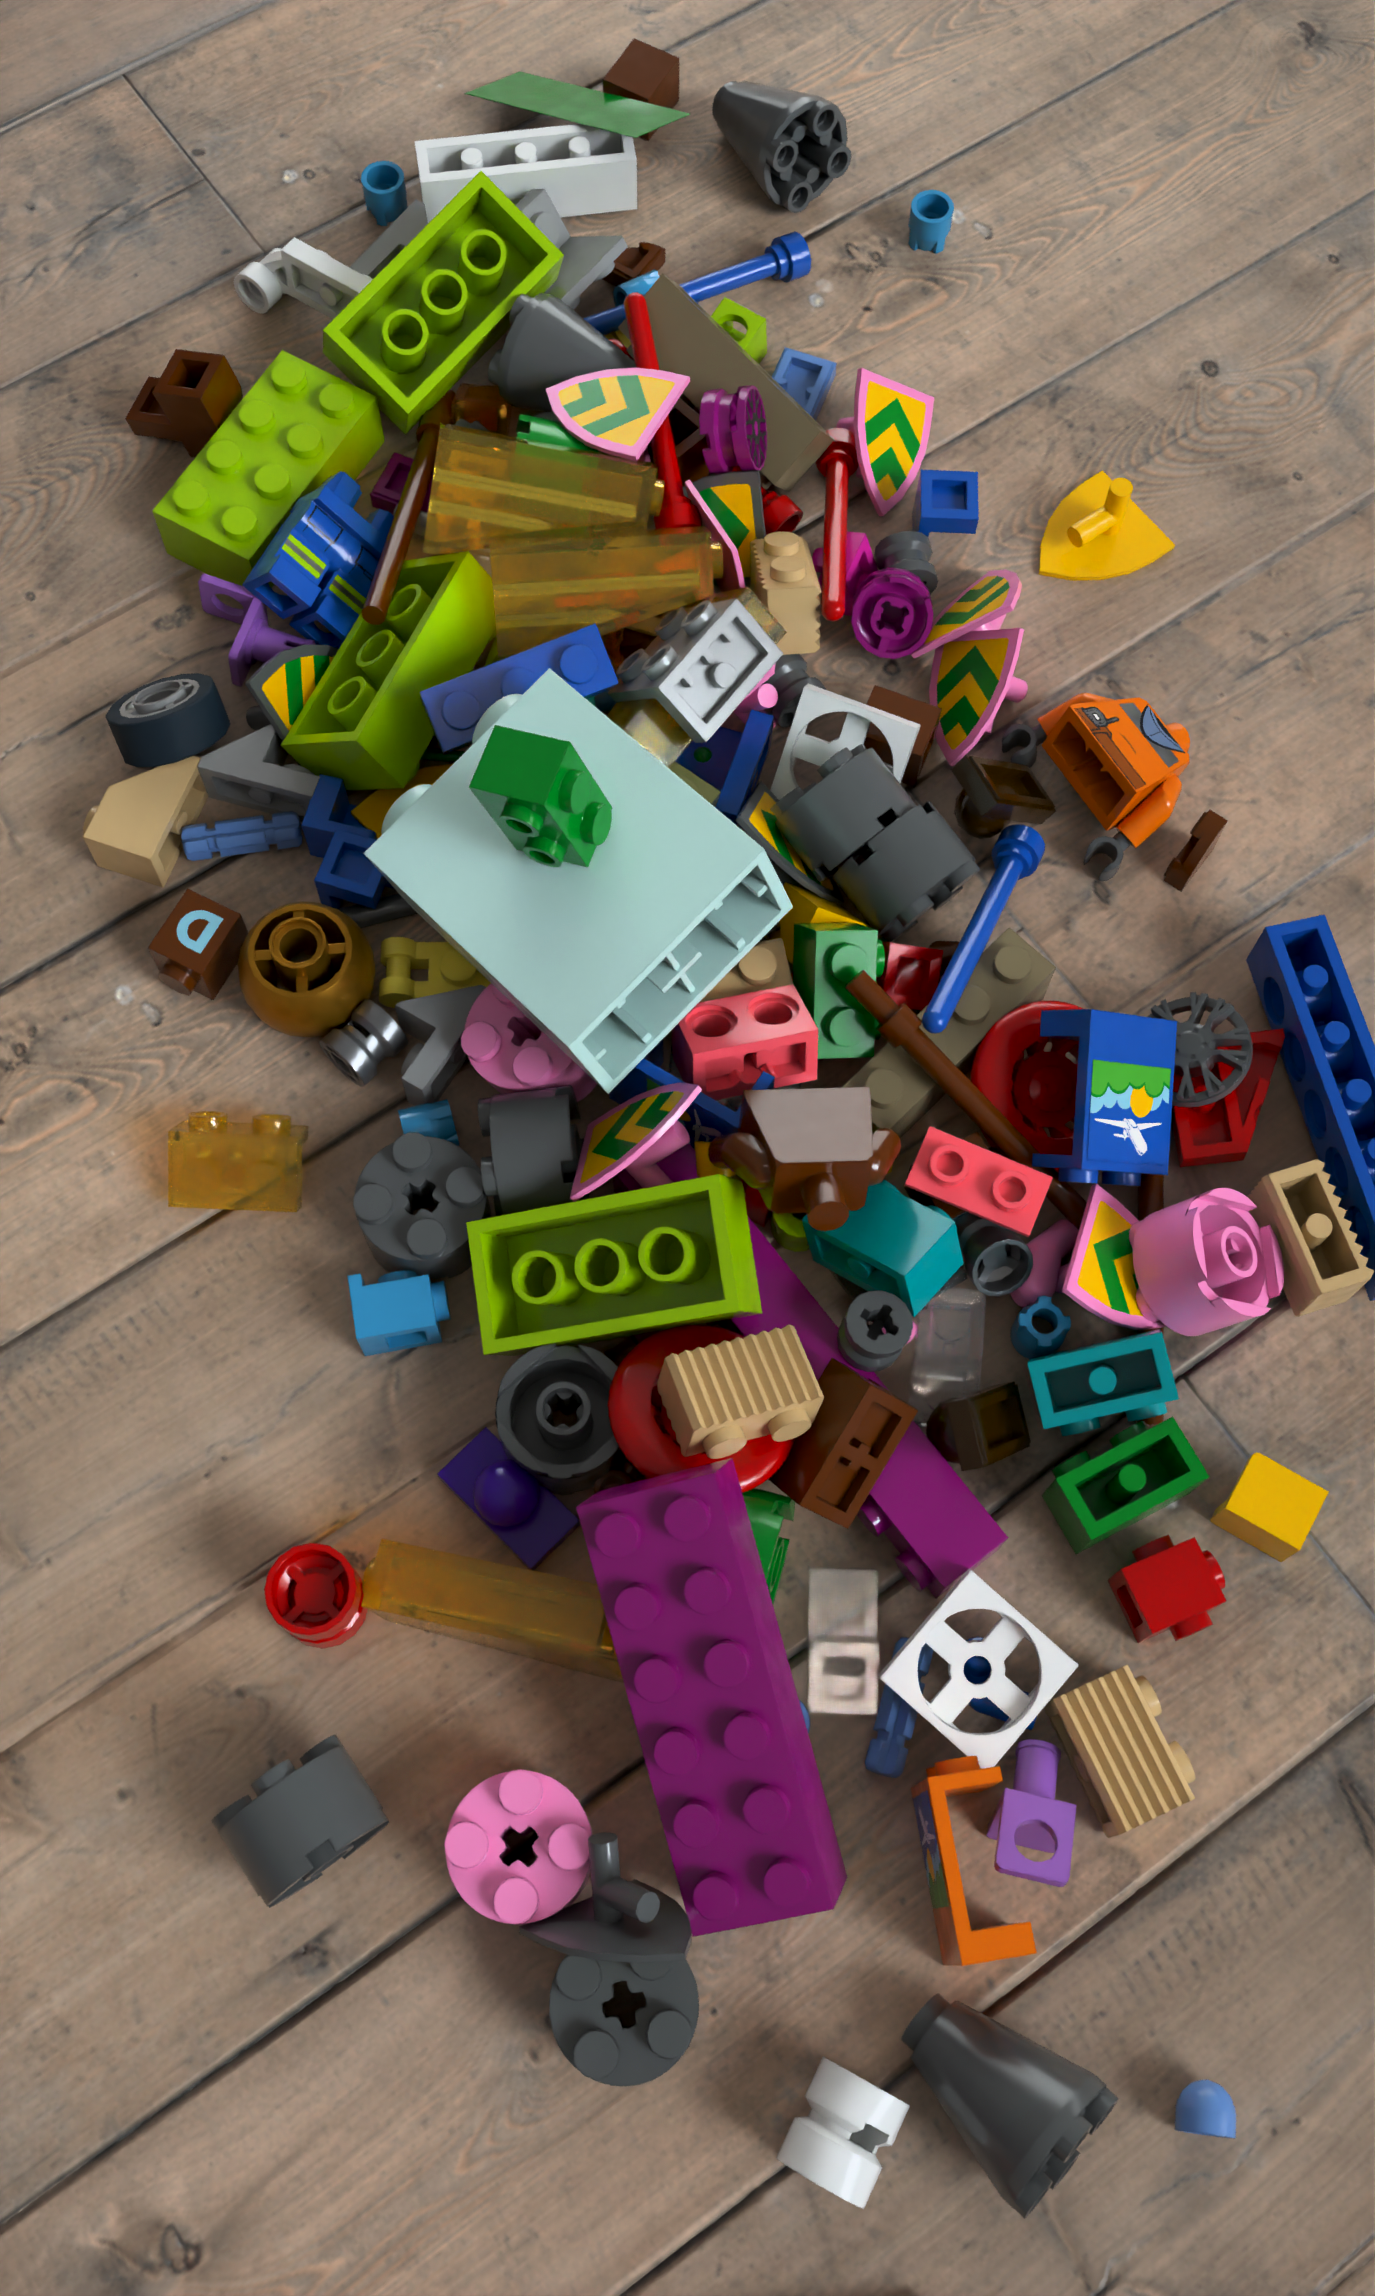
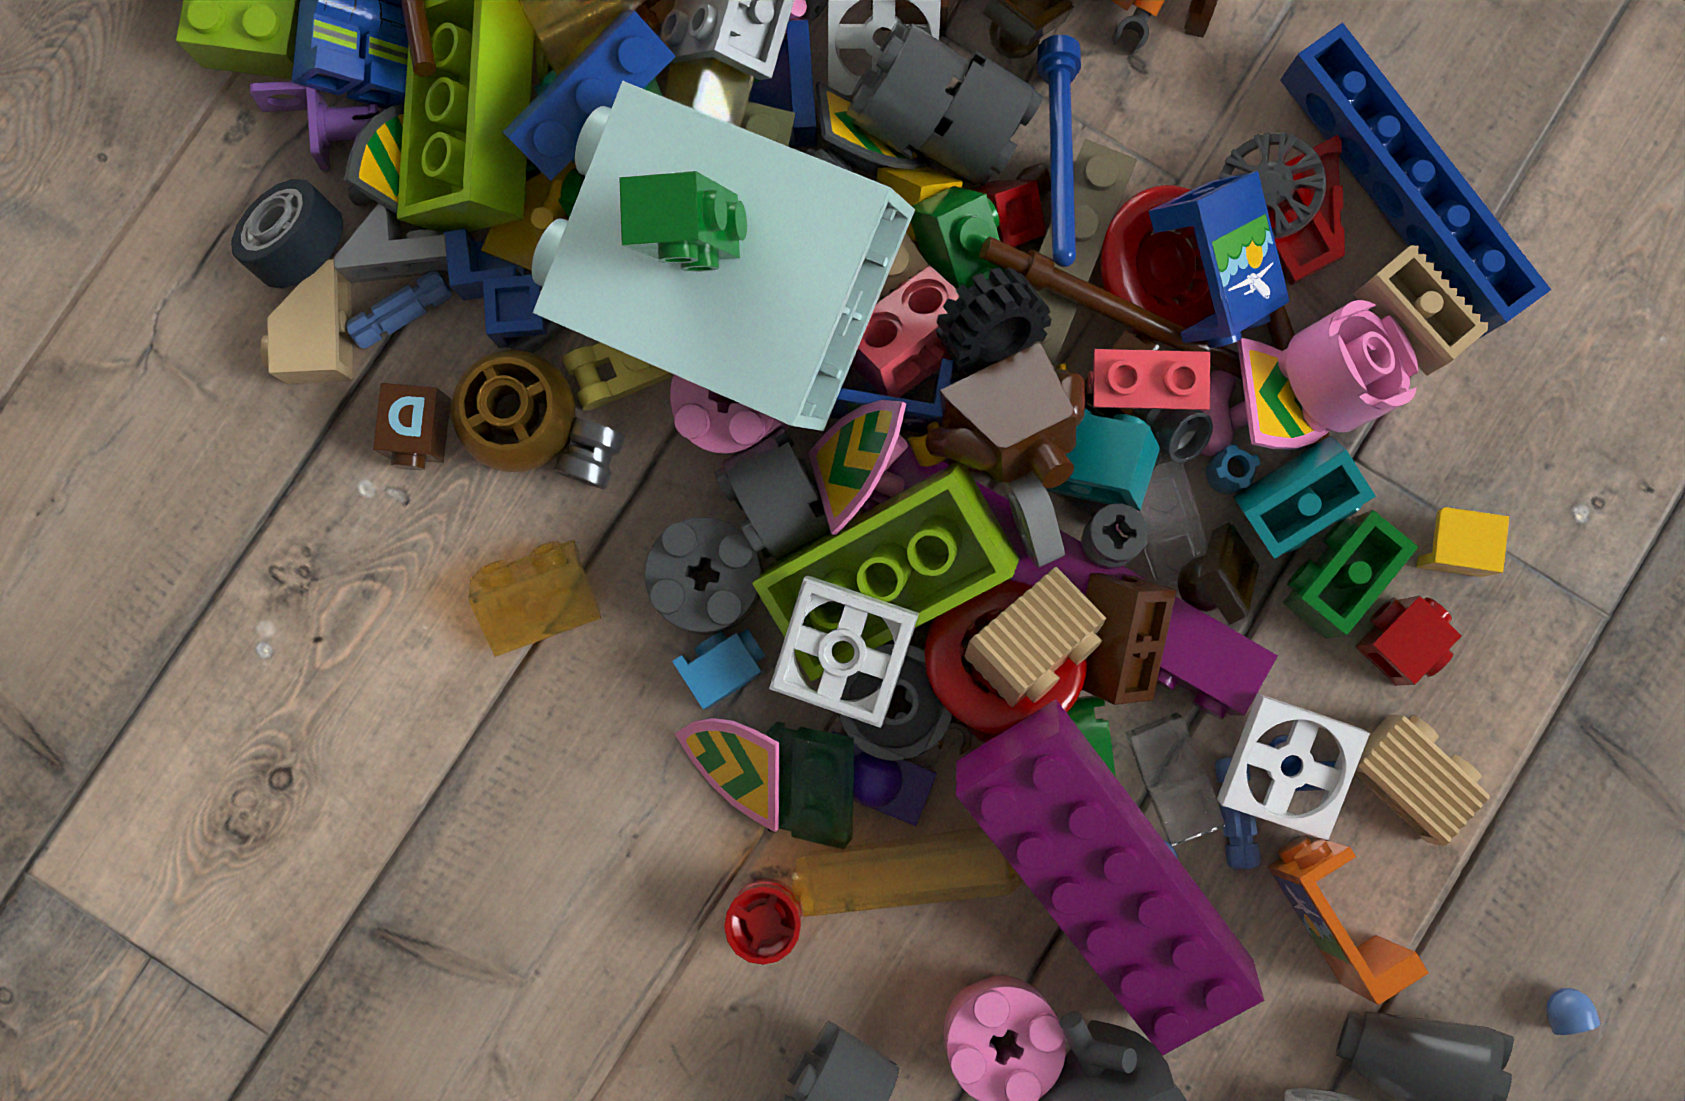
camera: 20 degrees left, 15 degrees up
(368, 1414) = (737, 765): none -> shield
(430, 1120) = (675, 502): dark azure hose -> none
(434, 1467) = (815, 784): none -> clear green plate
(439, 1024) = (649, 410): light grey slope -> none
(459, 1328) = (790, 681): none -> white piece
(793, 1271) = (1035, 519): none -> light grey beam
(830, 1028) = (992, 320): none -> black tyre
(1034, 1818) = (1376, 857): medium lavender bracket -> none

